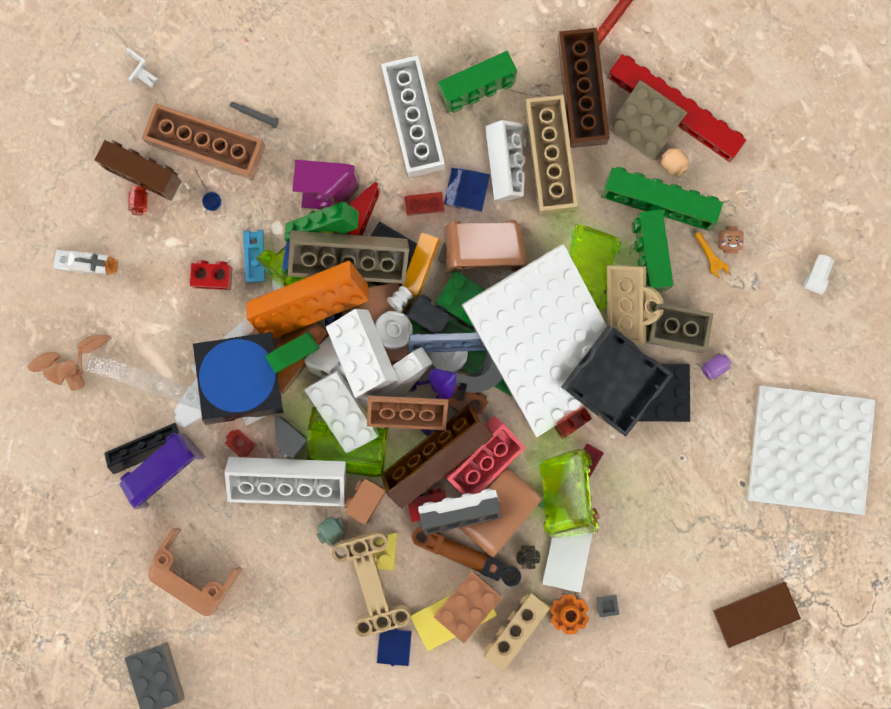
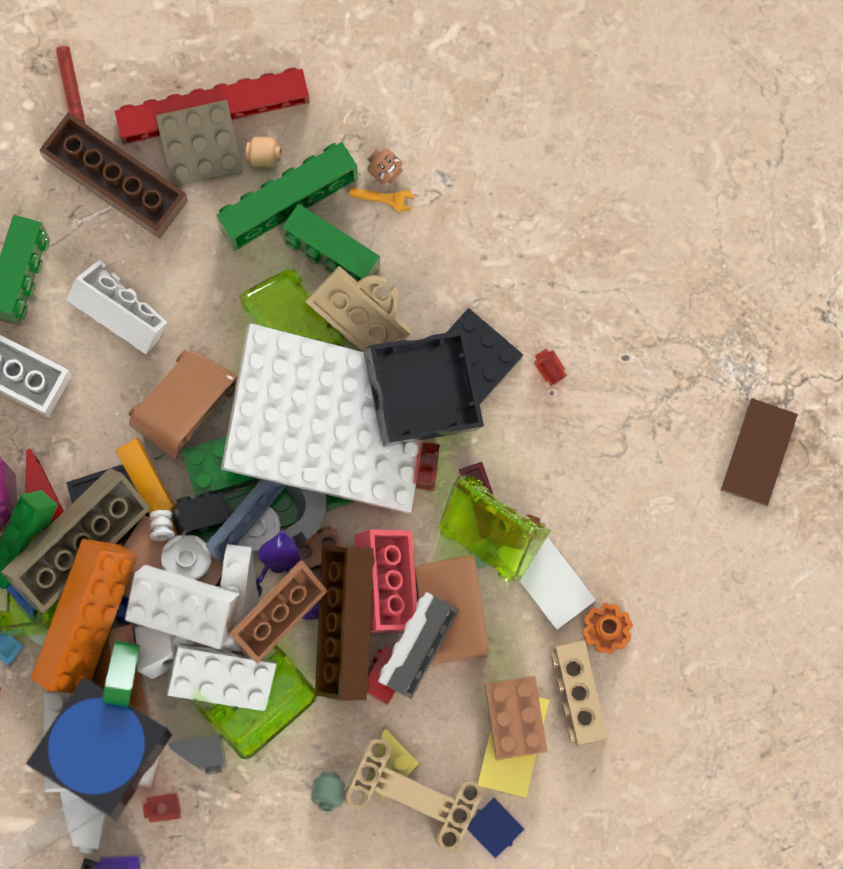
camera: 55 degrees left, 5 degrees down
(286, 481) = (241, 792): white brick -> none
(365, 500) = (327, 729): nougat brick -> none
(424, 203) = (88, 424): clear red plate -> none
(466, 189) = (111, 371): clear blue slope -> none
(467, 556) = (467, 679): dark orange piece -> none
(528, 557) = (519, 620): clear smoke gear -> none
(551, 155) = (151, 262): tan brick -> none
(607, 605) = (630, 585): dark grey plate -> none
(681, 328) = (427, 286): dark tan brick -> none
(697, 443) = (550, 366): none -> clear red brick
(716, 366) = (492, 284): medium lavender brick -> none
(811, 450) = (648, 266): white plate -> none
(817, 279) = (492, 118): white piece -> none

